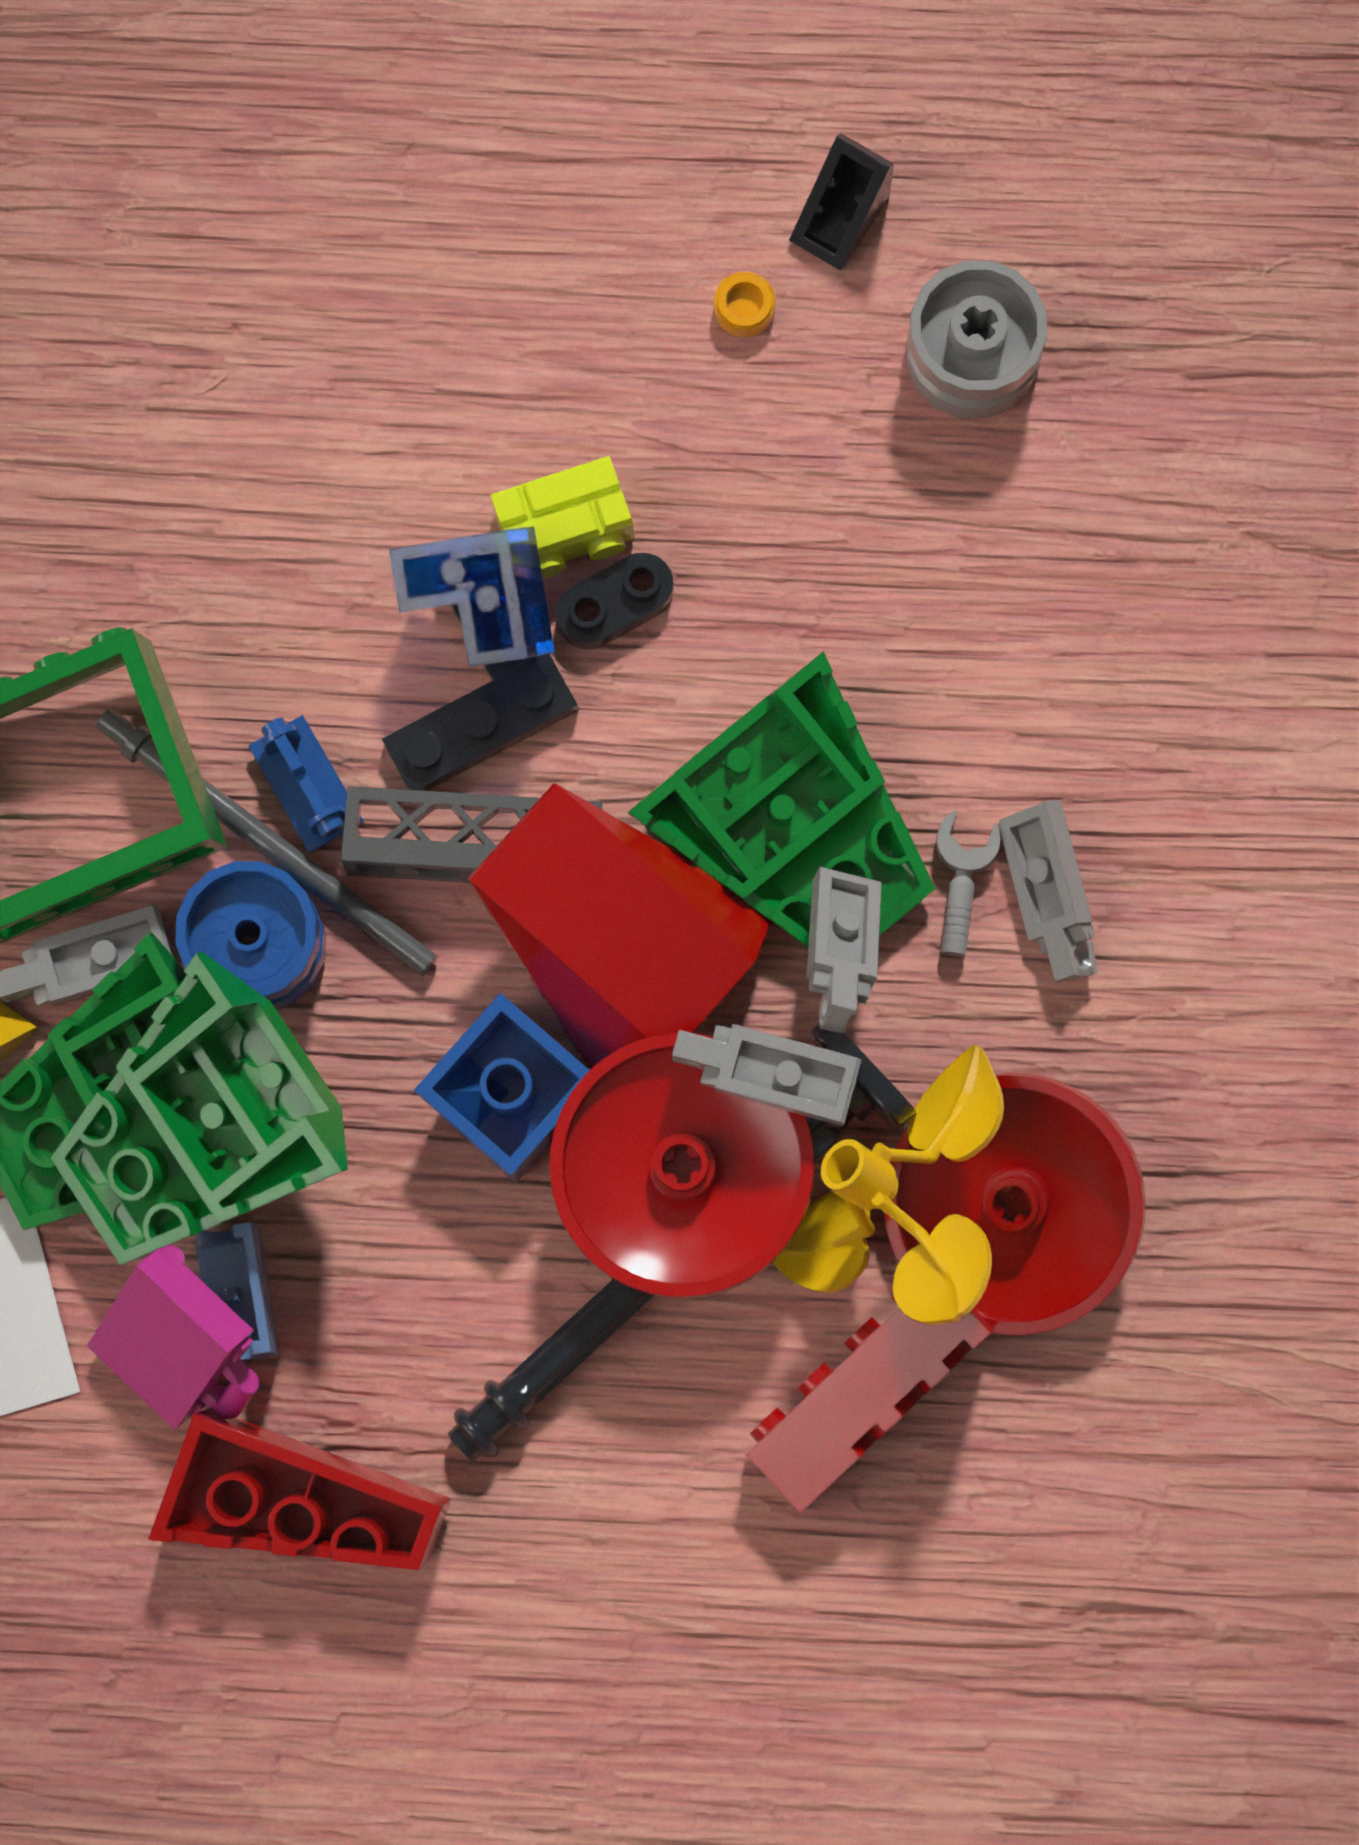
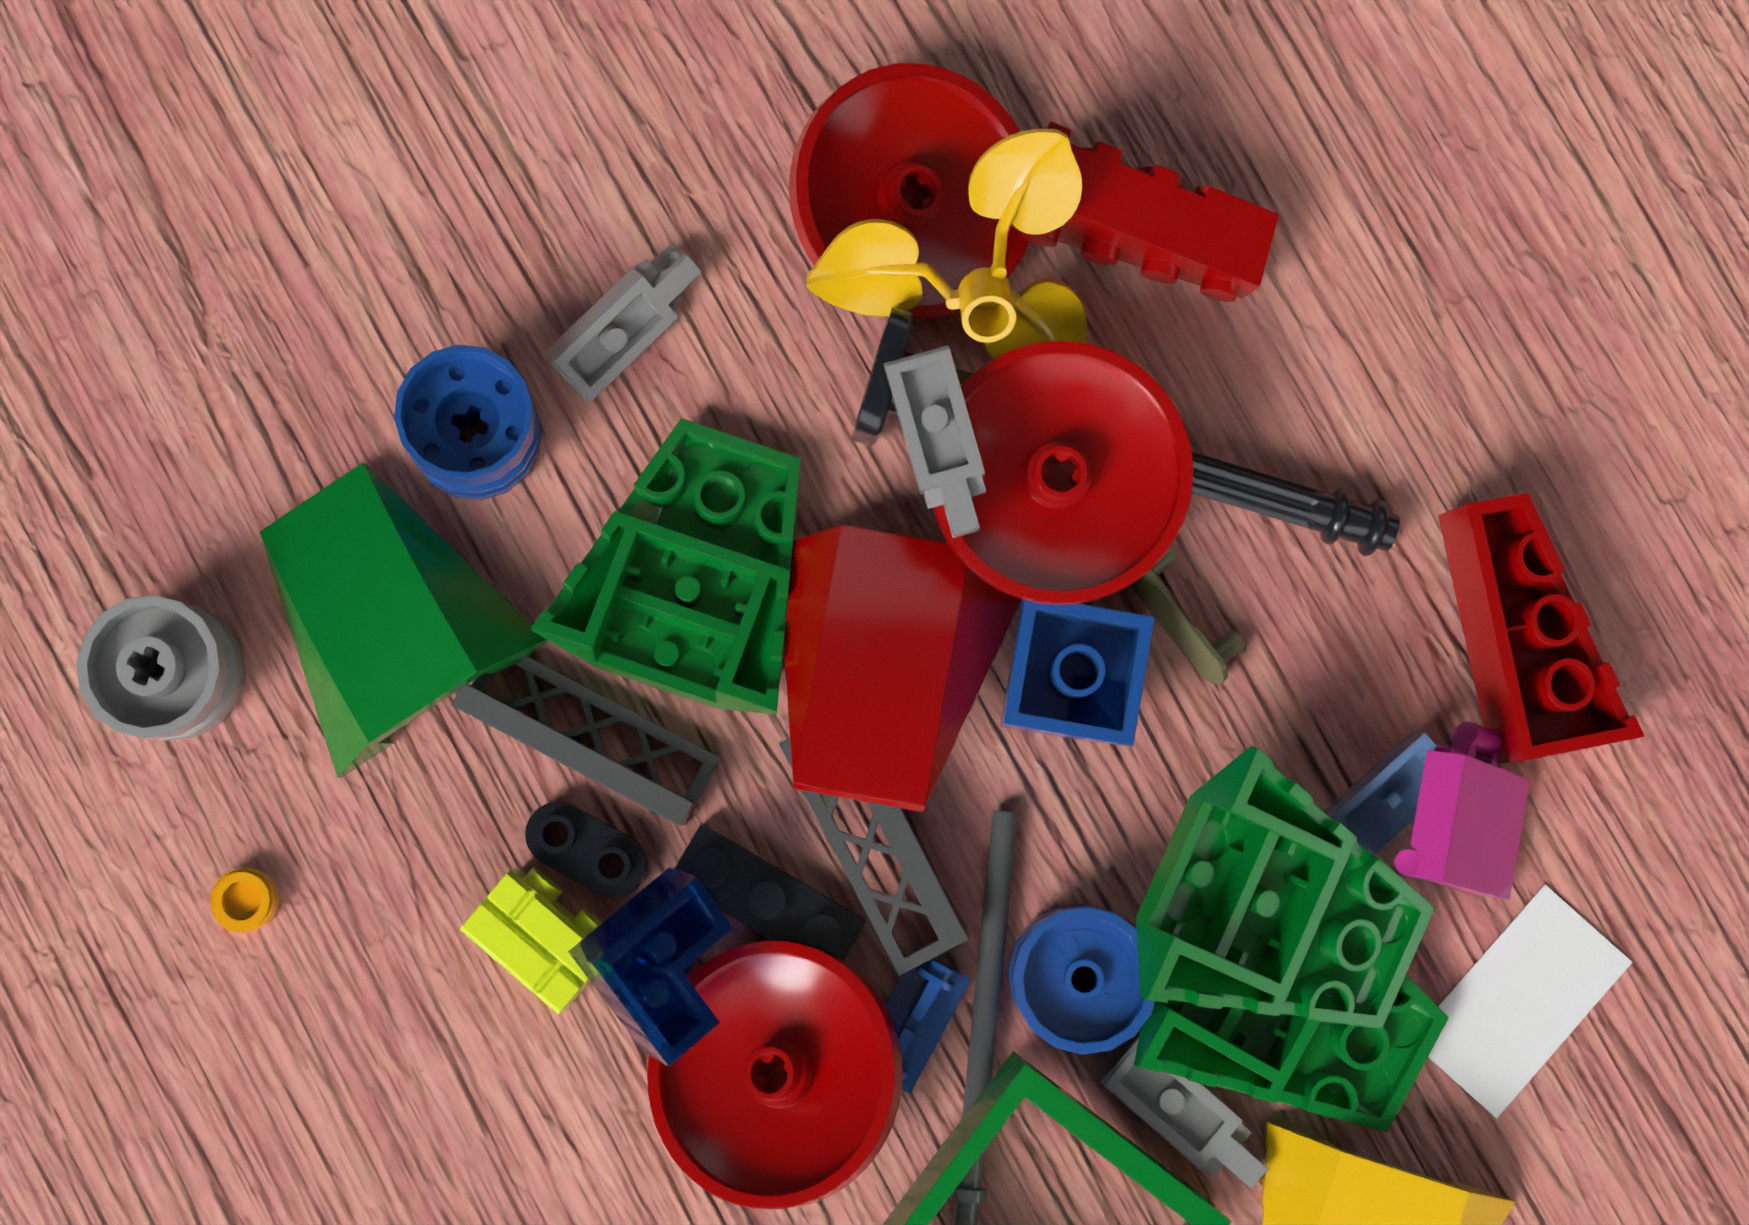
camera: 120 degrees left, 5 degrees up
(316, 643) = (788, 1084): none -> red dish
(449, 1218) = (1206, 658): none -> olive piece
(696, 636) = (581, 757): none -> dark grey fence
(842, 944) = (784, 453): light grey hinge -> none
(843, 202) = (97, 865): black slope -> none
(917, 547) = (383, 613): none -> green wedge
(961, 887) = (664, 401): light grey piece -> none
(1030, 666) = (450, 393): none -> blue wheel

